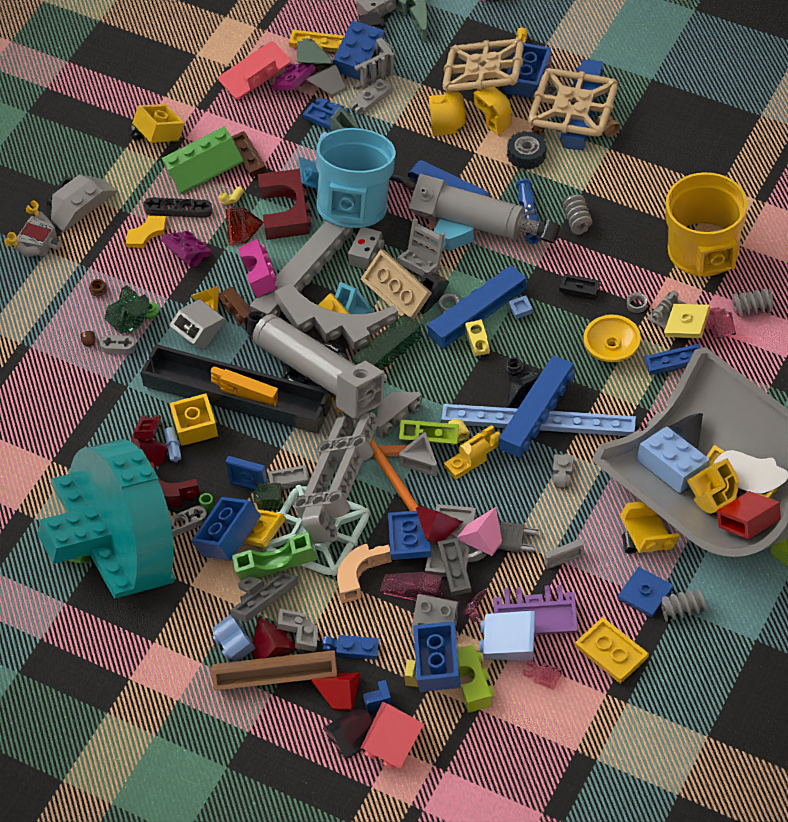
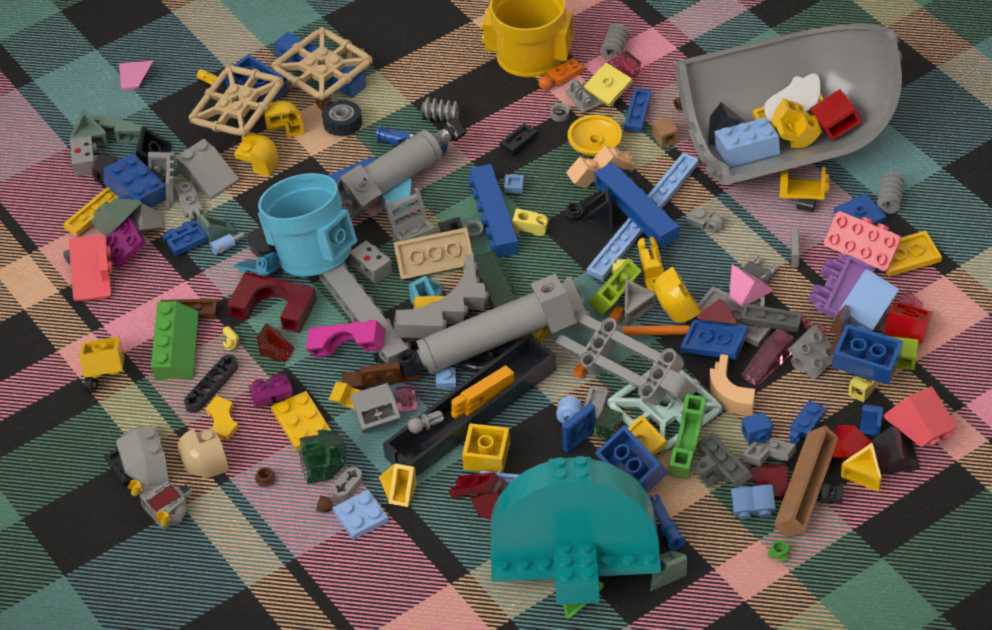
camera: 65 degrees left, 5 degrees down
(91, 368) = (360, 514): none -> light blue plate
(96, 235) = (202, 453): none -> tan brick
(129, 381) = (399, 484): none -> yellow slope
(134, 606) = (672, 568): none -> sand green slope
(170, 283) = (299, 418): none -> yellow plate
(176, 588) = (668, 528): none -> blue pin
(184, 357) = (416, 424): none -> light grey axle
(192, 677) = (779, 546): none -> bright green plate
(229, 340) = (406, 397): none -> clear pink slope
(266, 361) = (446, 378): none -> light blue plate
(271, 459) = (567, 408): none -> light blue head
(274, 698) = (837, 493): none -> black wheel
(313, 712) = (863, 468): none -> yellow slope
(321, 609) = (756, 428): none -> blue brick
(408, 43) = (150, 142): none -> black slope
(409, 89) = (206, 169): none -> light grey slope
(436, 480) = (675, 297): none -> yellow brick
(467, 622) = (841, 319): none -> reddish brown slope
(516, 681) = (908, 322): none -> red slope
(583, 360) = (583, 169): none -> light nougat arch
(601, 602) = (863, 240): none -> coral bracket
(655, 392) = (665, 132): none -> medium nougat brick
(687, 282) = (561, 74): none -> orange plate

